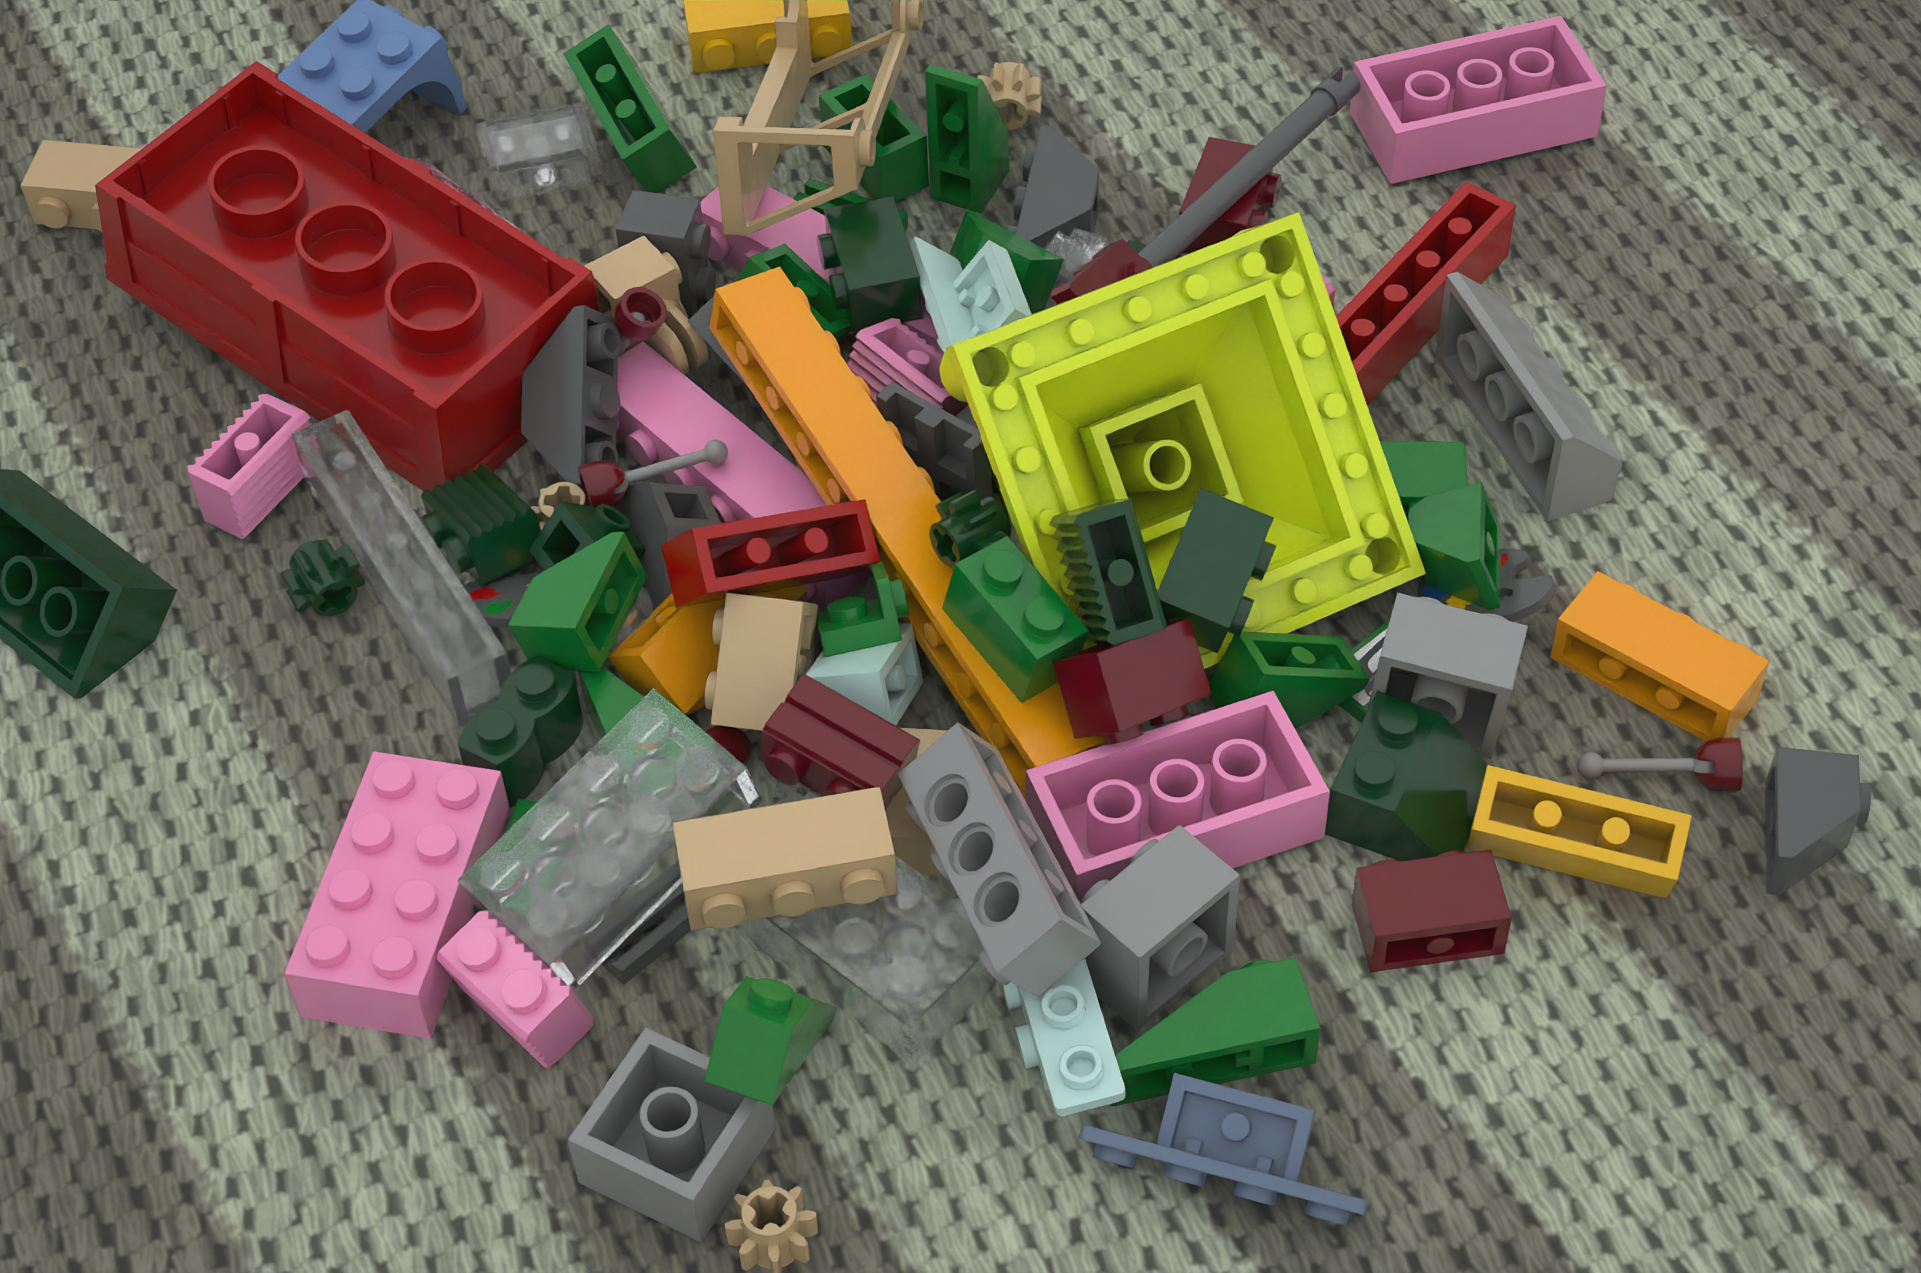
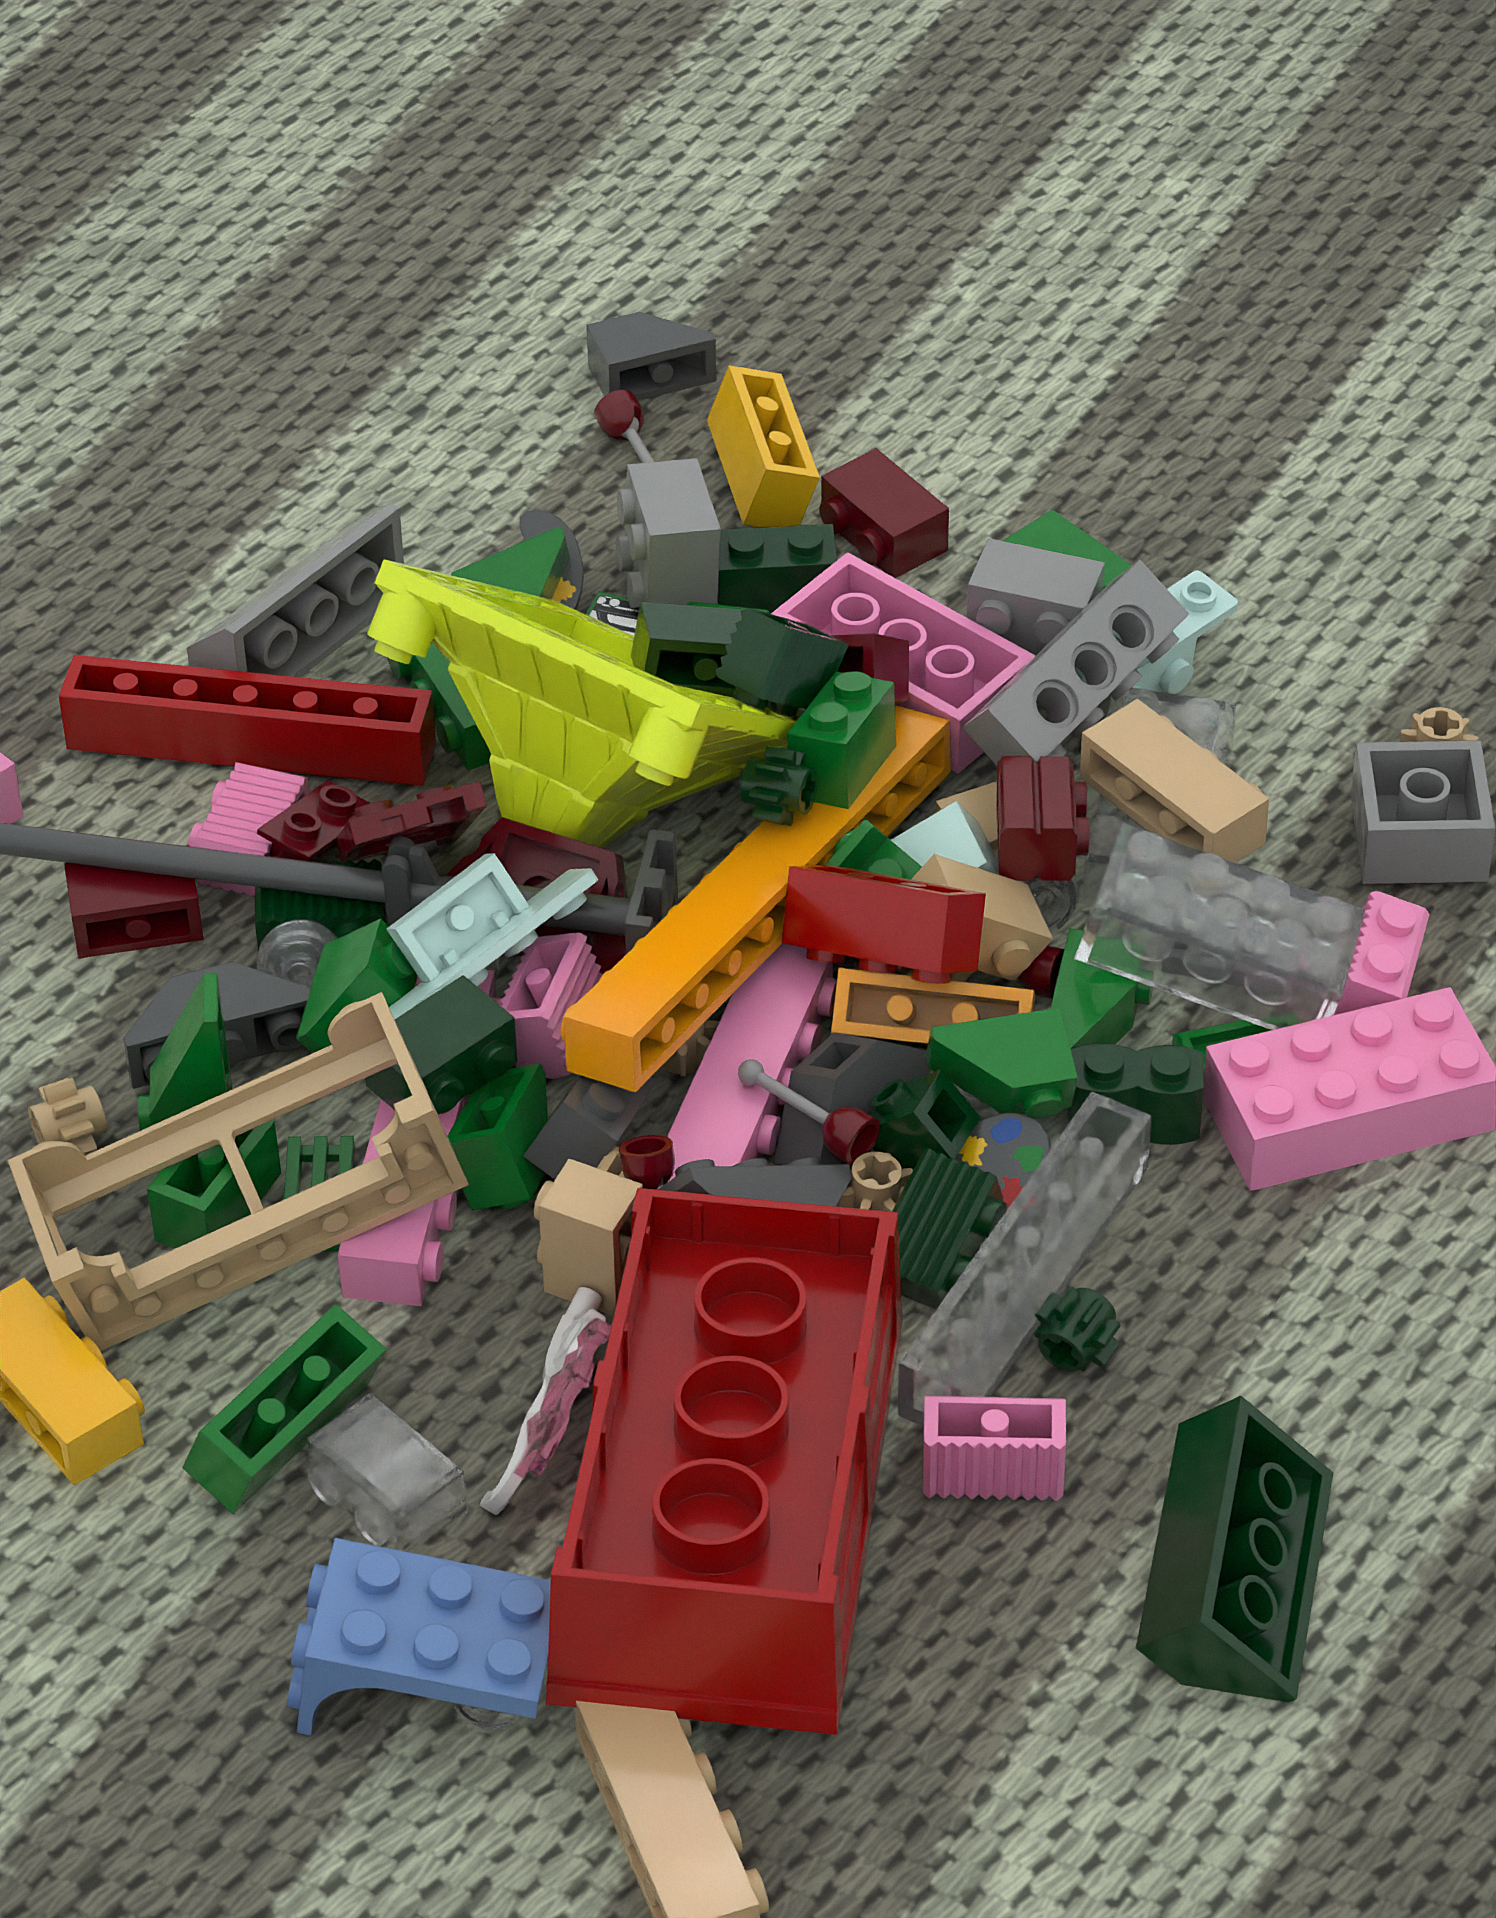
camera: 120 degrees left, 5 degrees down
(673, 227) = (505, 1251): dark grey brick -> none
(765, 1038) = (1318, 750): green slope -> none
(1232, 1137) = (1172, 530): sand blue bracket -> none
(1658, 658) = (540, 461): light orange brick -> none

